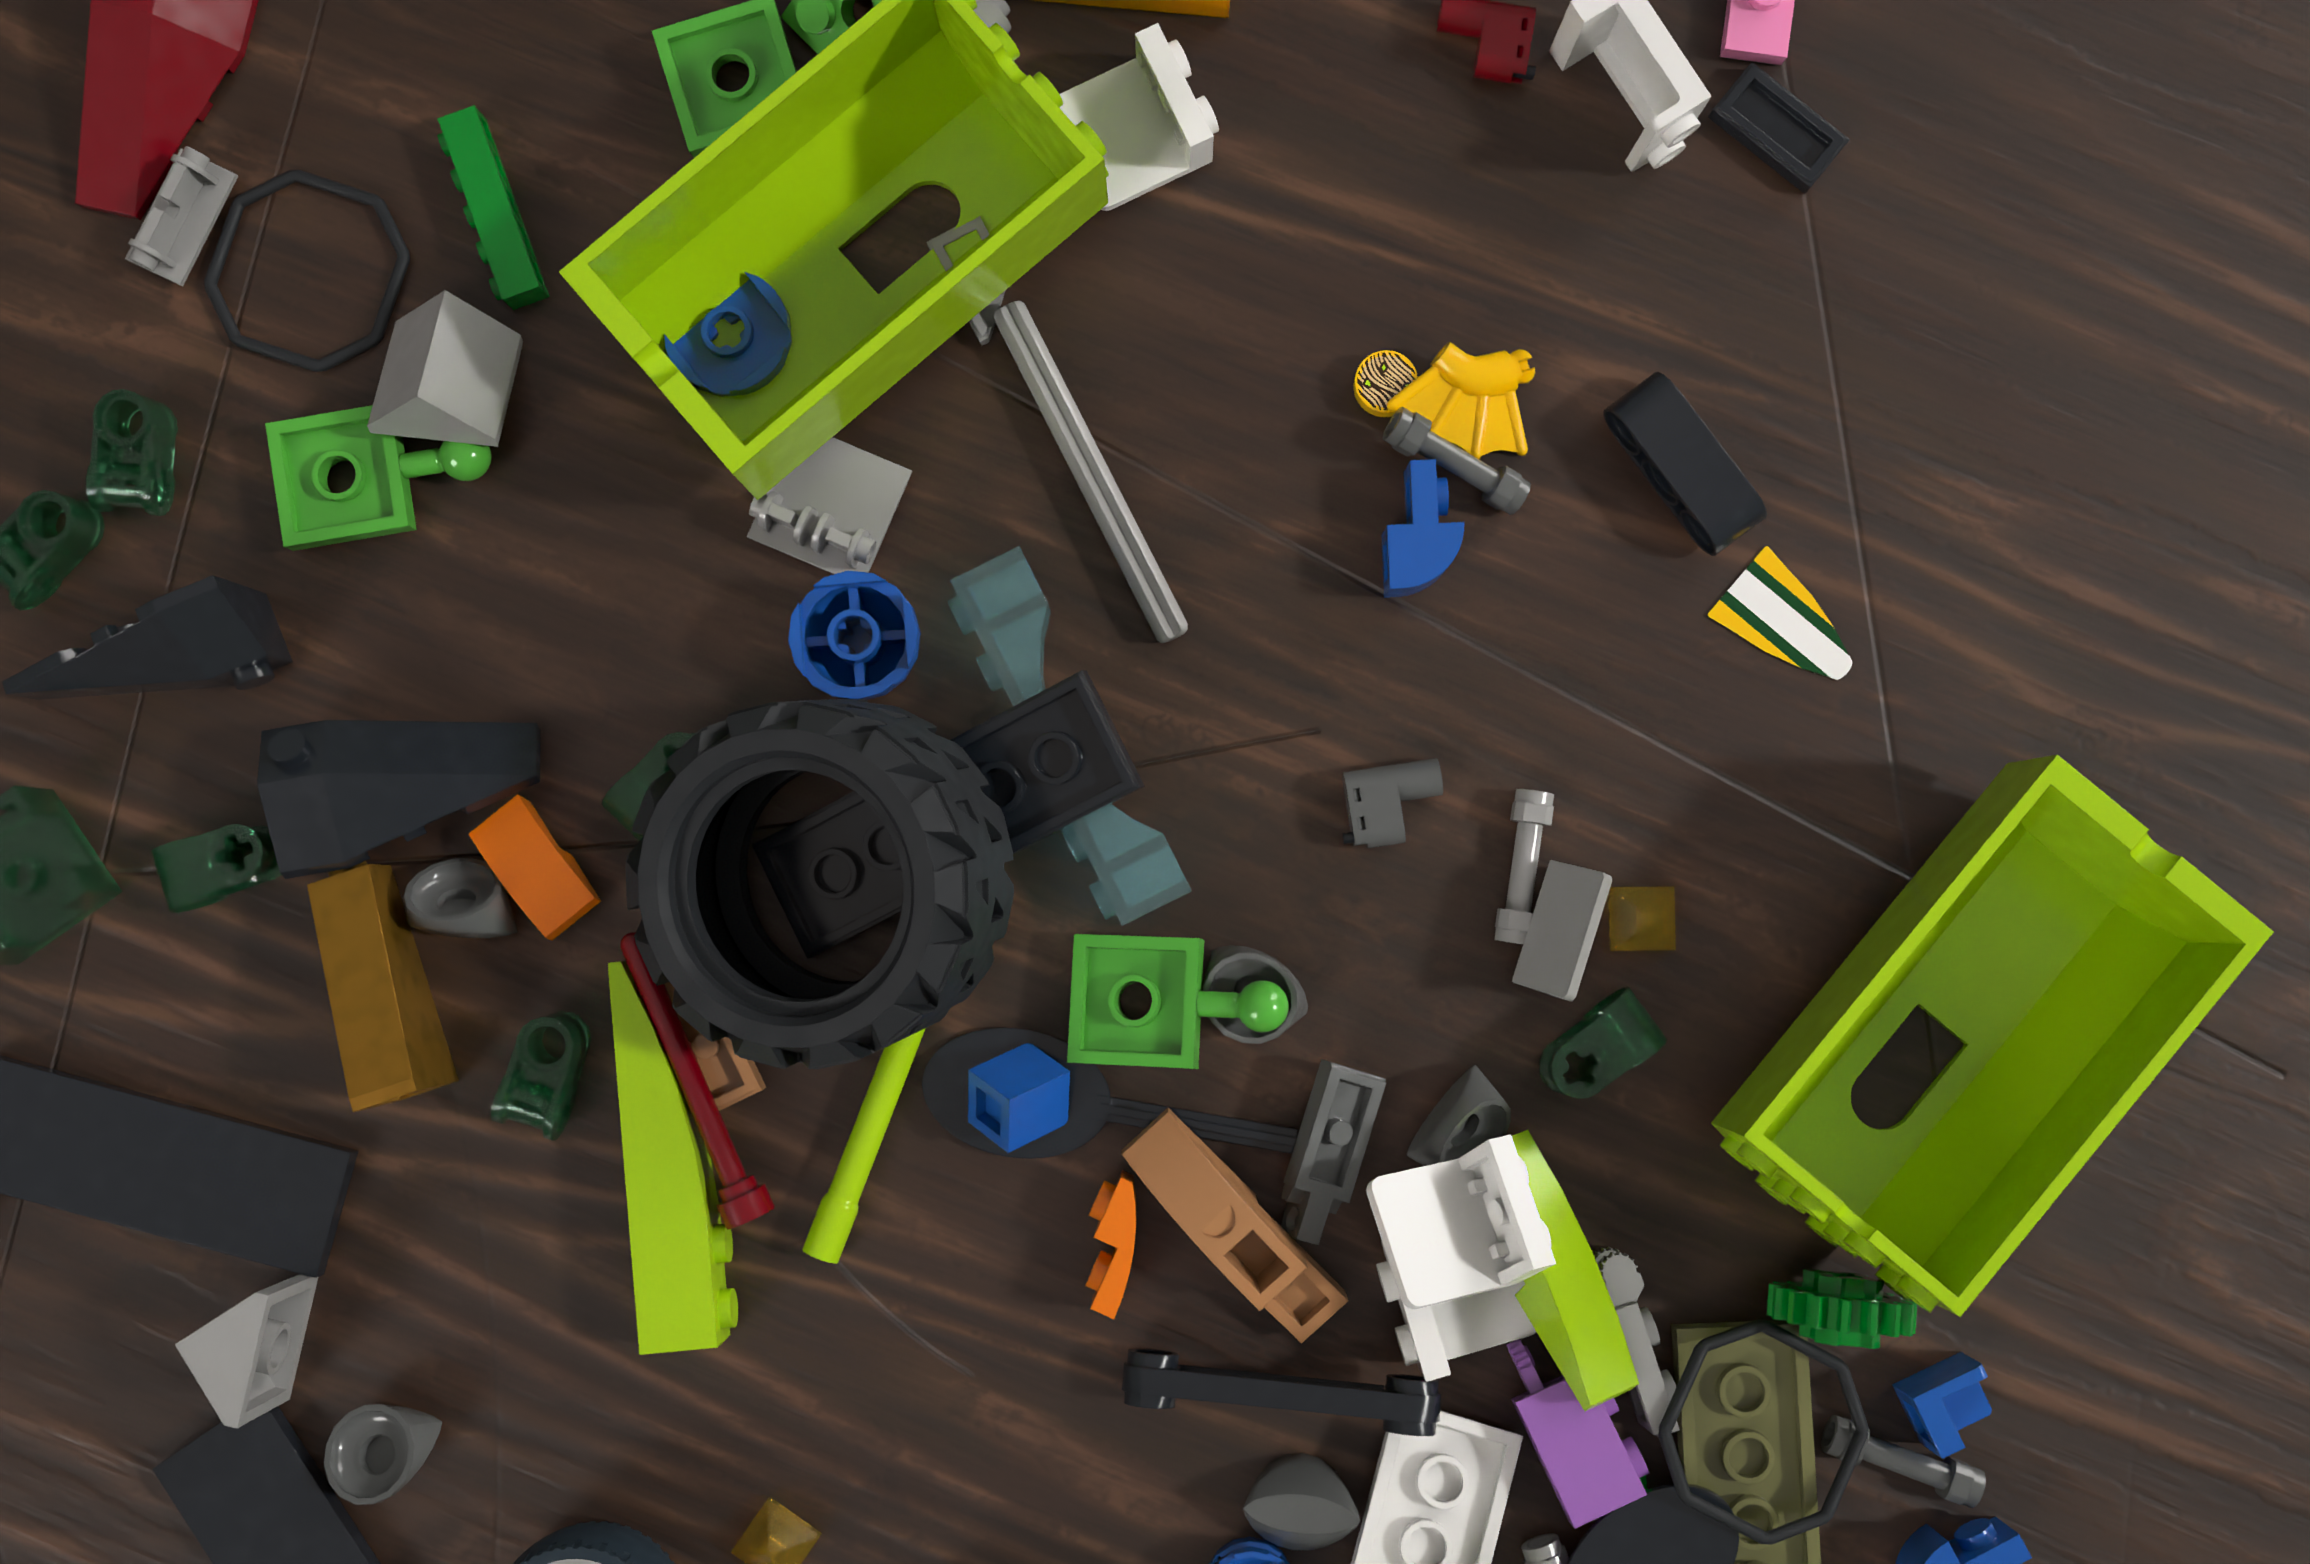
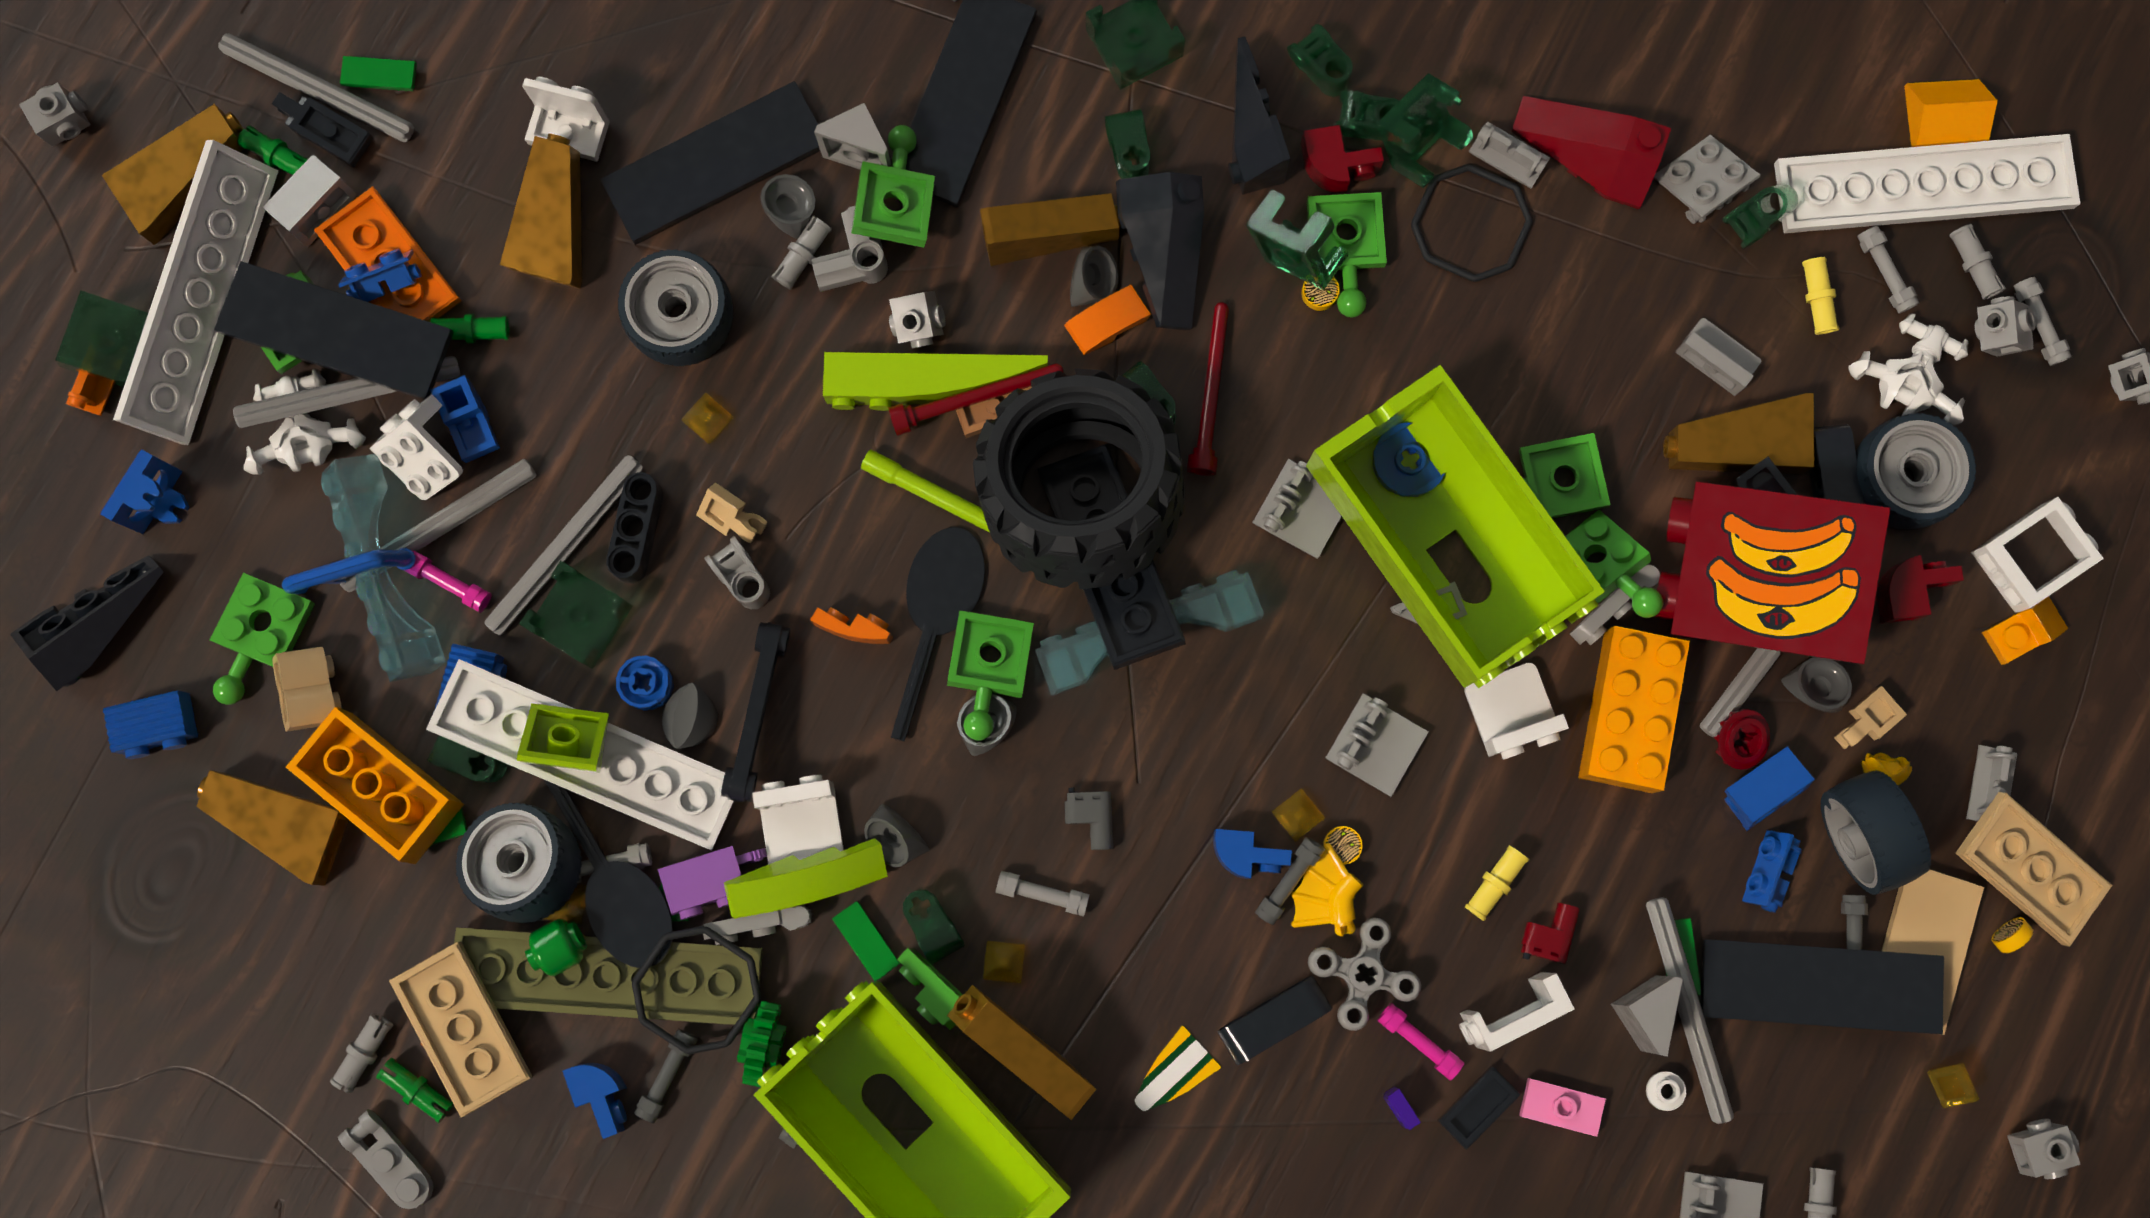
camera: 90 degrees right, 5 degrees down
(131, 364) = (1419, 123): none -> clear green panel
(222, 516) = (1330, 165): none -> dark red brick
(322, 1287) = (884, 182): none -> bright green plate
(381, 557) = (1295, 249): none -> clear green panel
(446, 375) = (1399, 296): light grey slope -> none
(450, 511) = (1320, 299): none -> tile
(464, 1416) = (801, 252): none -> light grey pin
(482, 1335) = (845, 266): none -> light grey piece
(491, 208) = (1498, 331): green piece -> none
(538, 1086) = (981, 311): clear green piece -> none
(563, 1199) = (916, 318): none -> light grey brick
(760, 679) = (1203, 458): none -> dark red piece
(854, 636) = (1220, 513): blue cylinder -> none
(943, 1487) = (725, 514): none -> tan plate
(1018, 1096) = (943, 580): blue panel -> none
(1036, 1458) = (735, 570): none -> light grey piece
(1091, 472) = (1306, 663): light grey axle -> none
(1213, 344) = (1376, 744): none -> light grey hinge
(1232, 1227) = (852, 694): medium nougat slope -> none
(1329, 1147) = (892, 757): dark grey hinge -> none
(1343, 461) = (1298, 815): none -> clear yellow slope
(1418, 128) = (1496, 883): none -> light yellow pin
(1460, 1225) = (838, 821): white bracket -> none
(1562, 930) = (1001, 909): light grey panel -> none
(1597, 302) = (1380, 979): none -> light grey gear
(1638, 1152) = (866, 941): none -> green piece
(1712, 188) = (1446, 1062): none -> dark pink bar
(1723, 1015) = (938, 994): none -> bright green plate
(1800, 246) = (1401, 1108): none -> dark purple tile
(1807, 868) = (1021, 1051): none -> pearl gold slope
(1944, 1401) = (697, 1106): blue panel -> none

